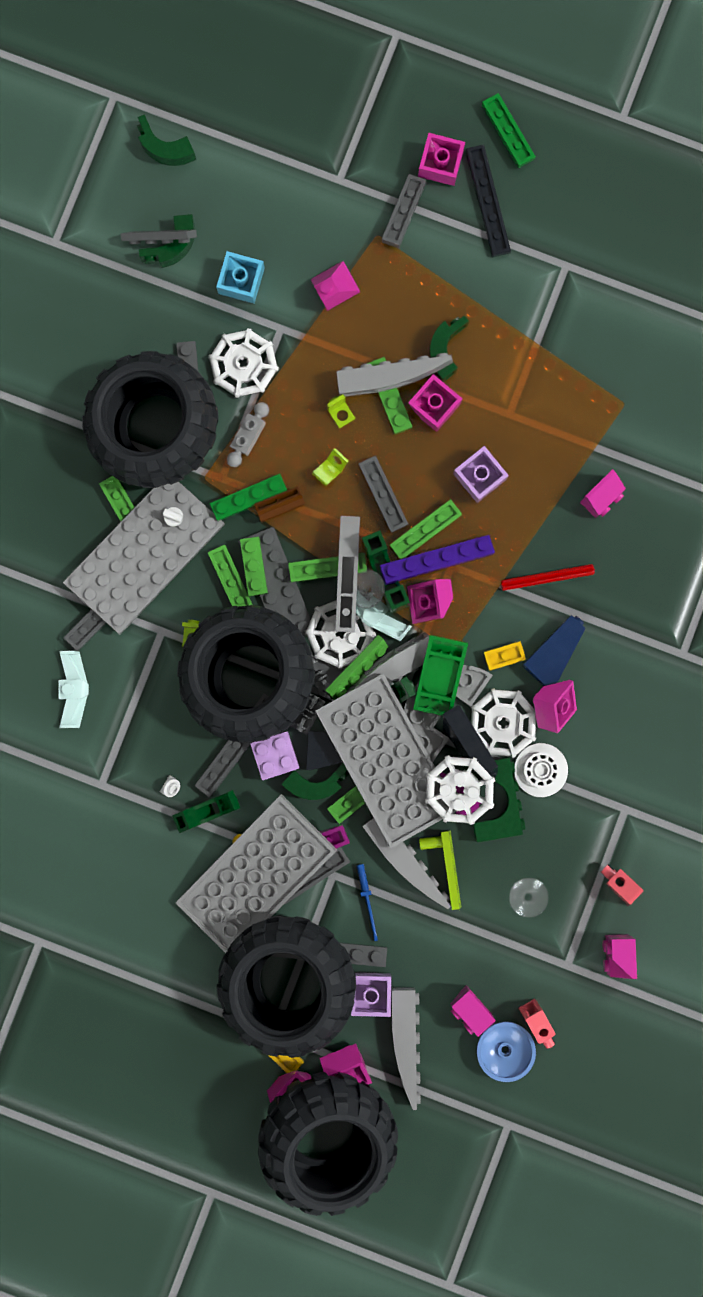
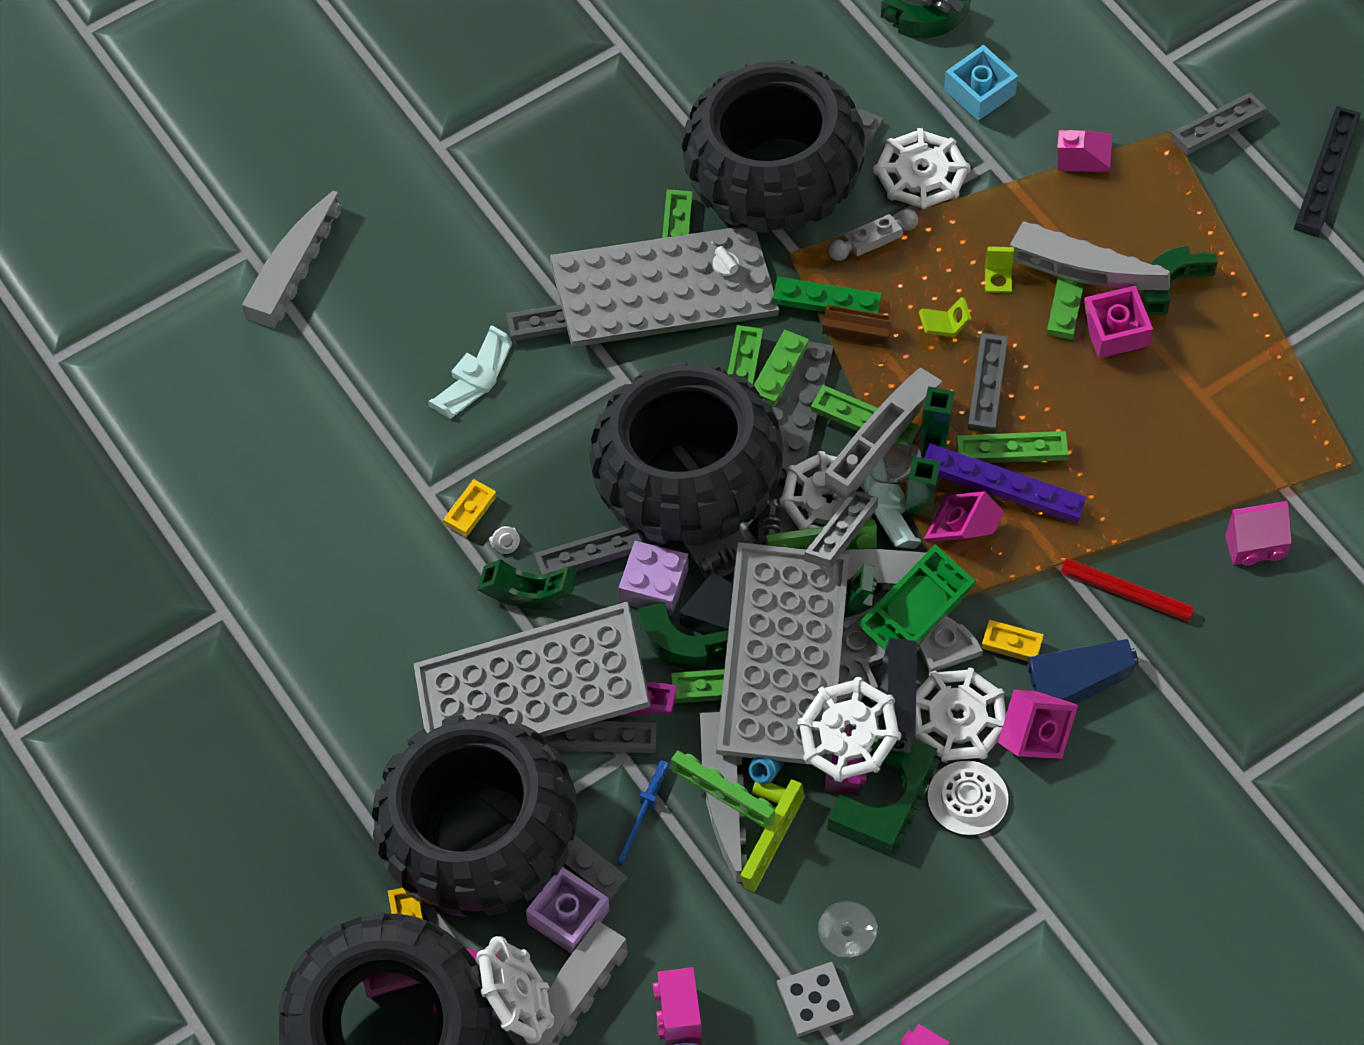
camera: 35 degrees right, 25 degrees down
(135, 781) = (470, 508): none -> yellow plate
(368, 660) = (841, 529): none -> dark grey plate
(390, 1085) = (515, 990): none -> white plate
(419, 867) = (731, 794): none -> bright green plate
(422, 838) = (764, 769): none -> dark azure cone
(441, 159) = (1299, 96): dark pink slope -> none
(480, 474) = (1120, 424): lavender brick -> none
(536, 948) = (814, 999): none -> light grey tile
(629, 891) = (979, 989): coral torso -> none

